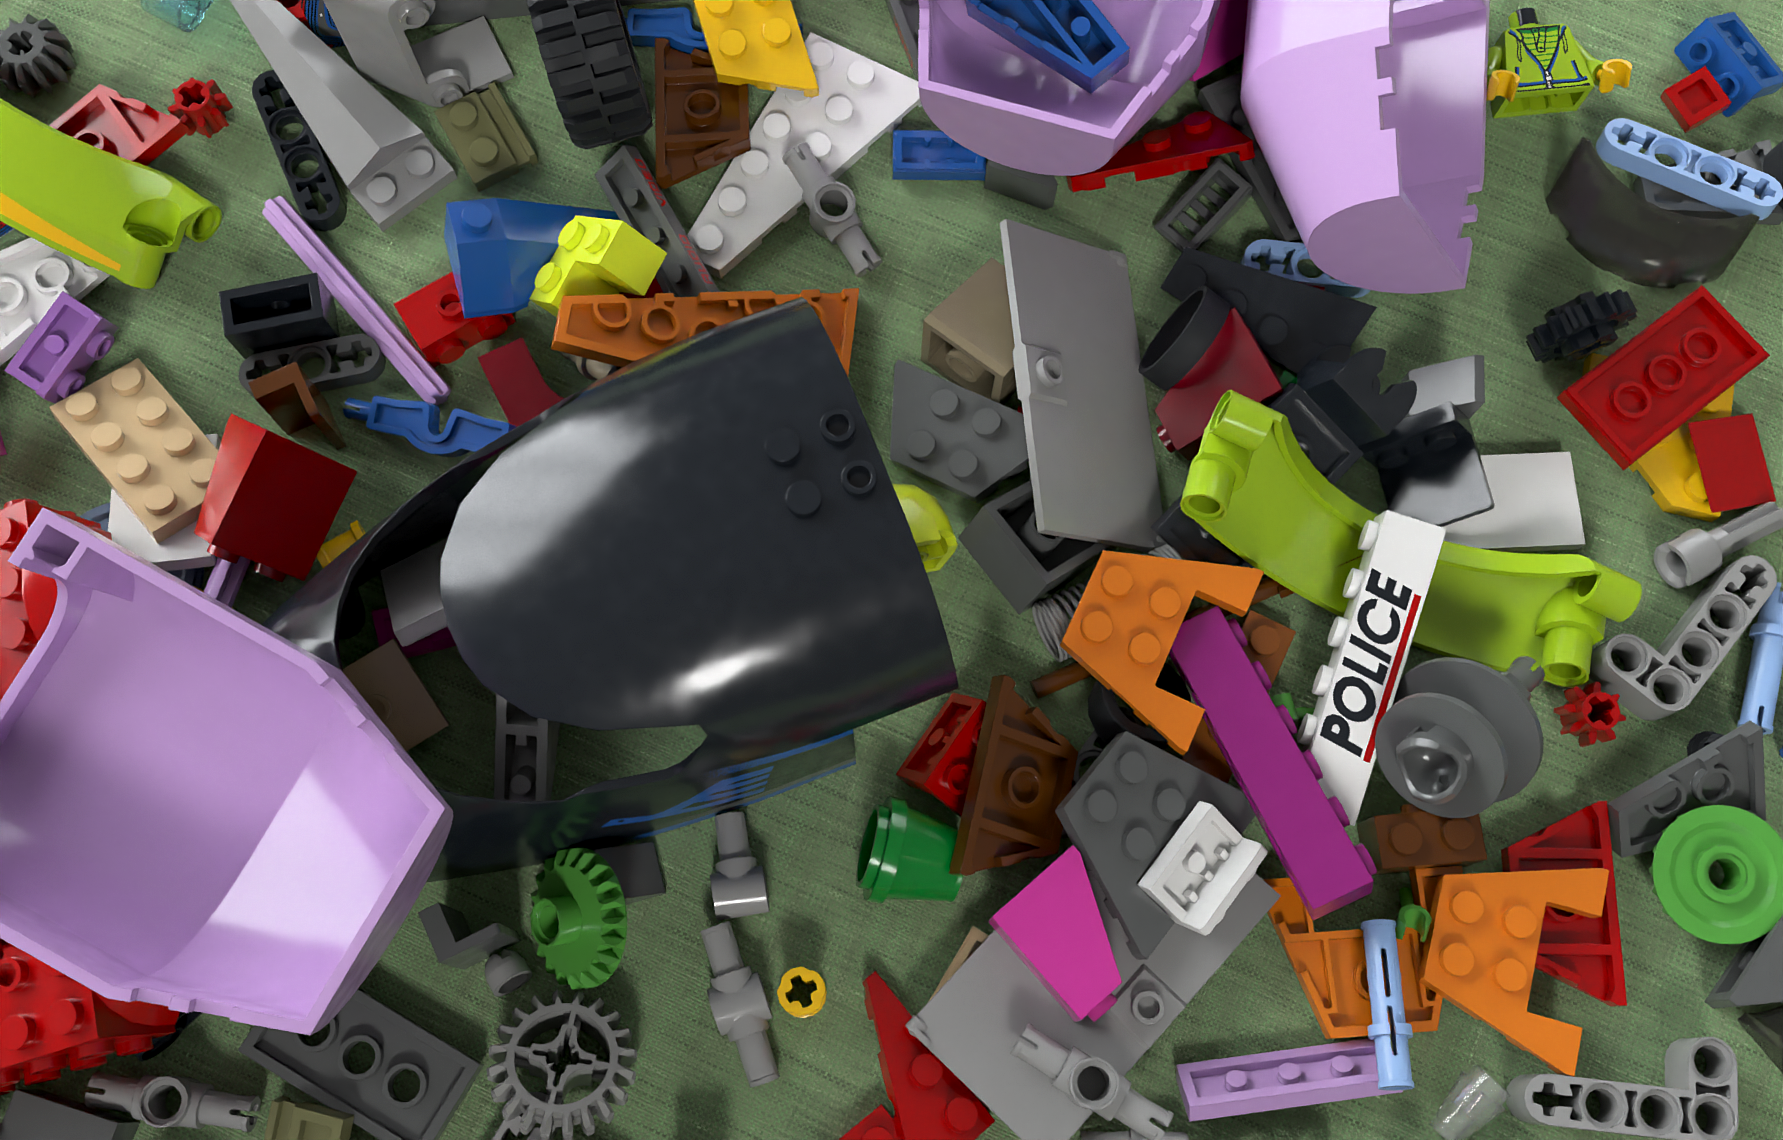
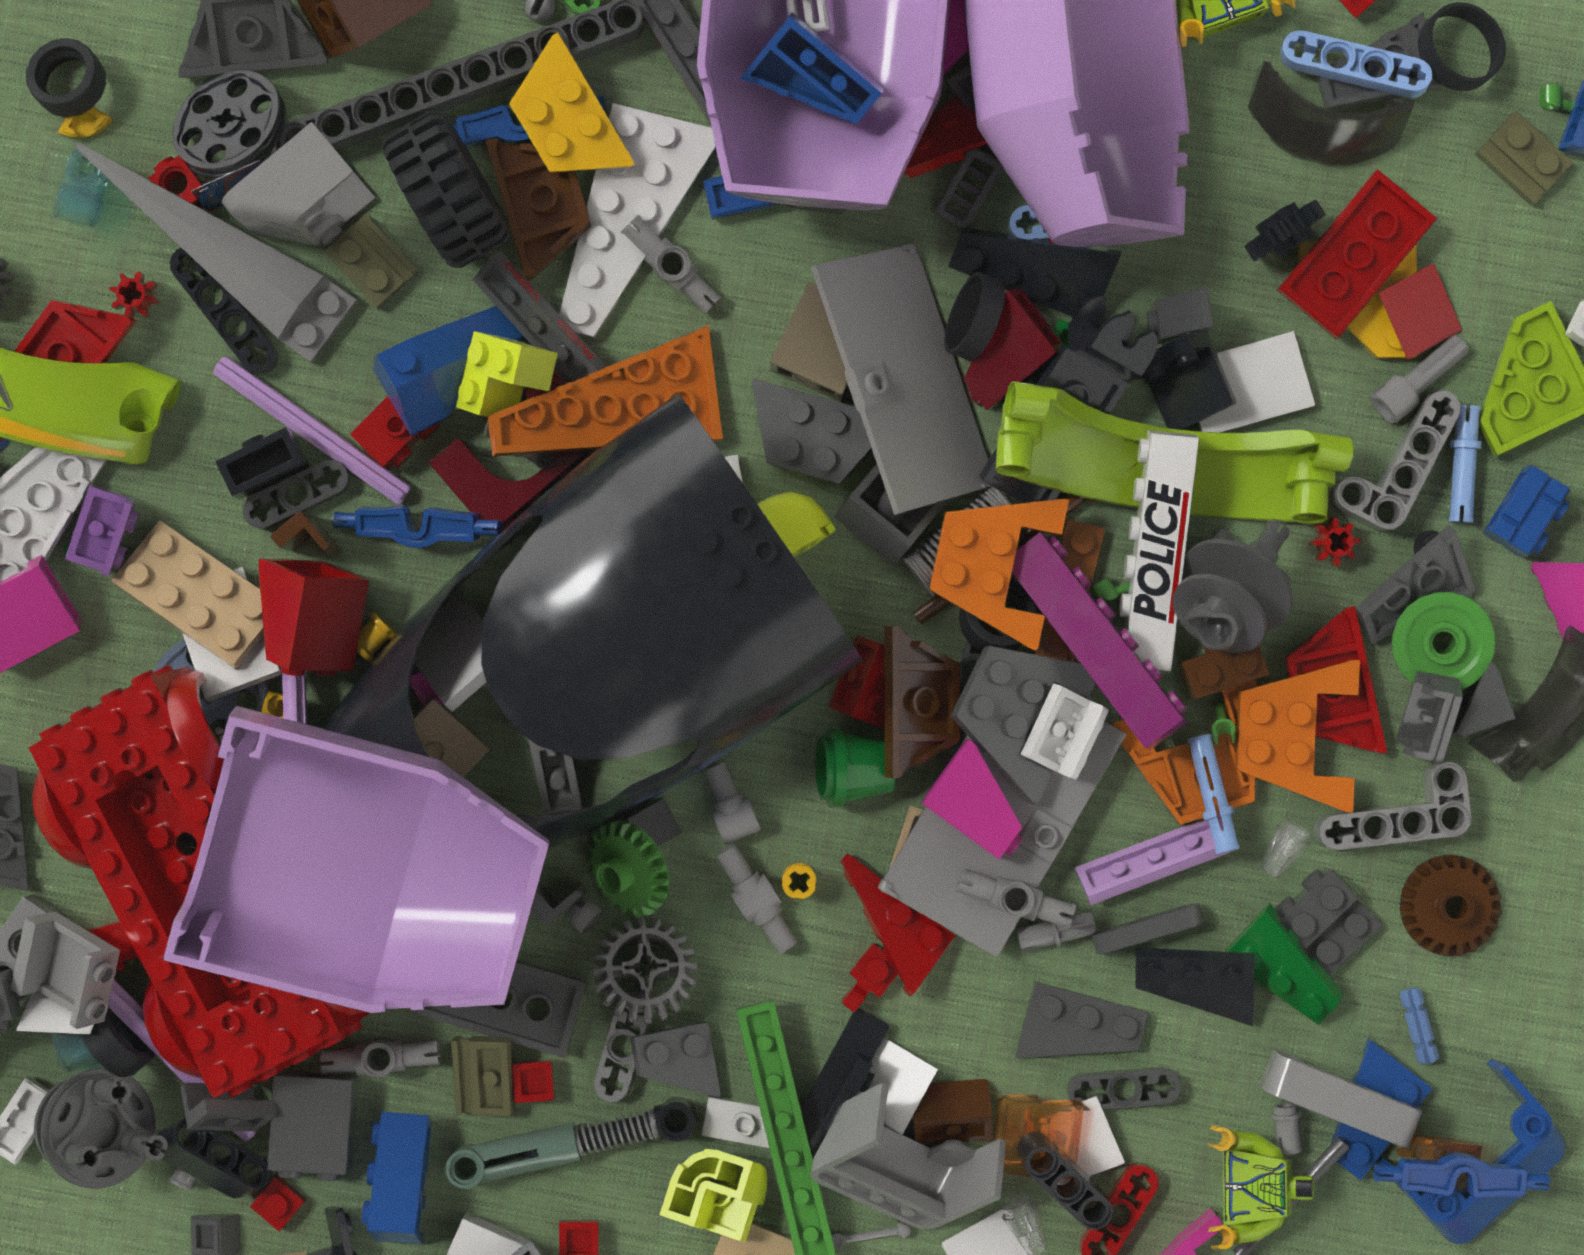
camera: 10 degrees left, 15 degrees up
(1694, 969) = (1430, 716): none -> dark grey hinge

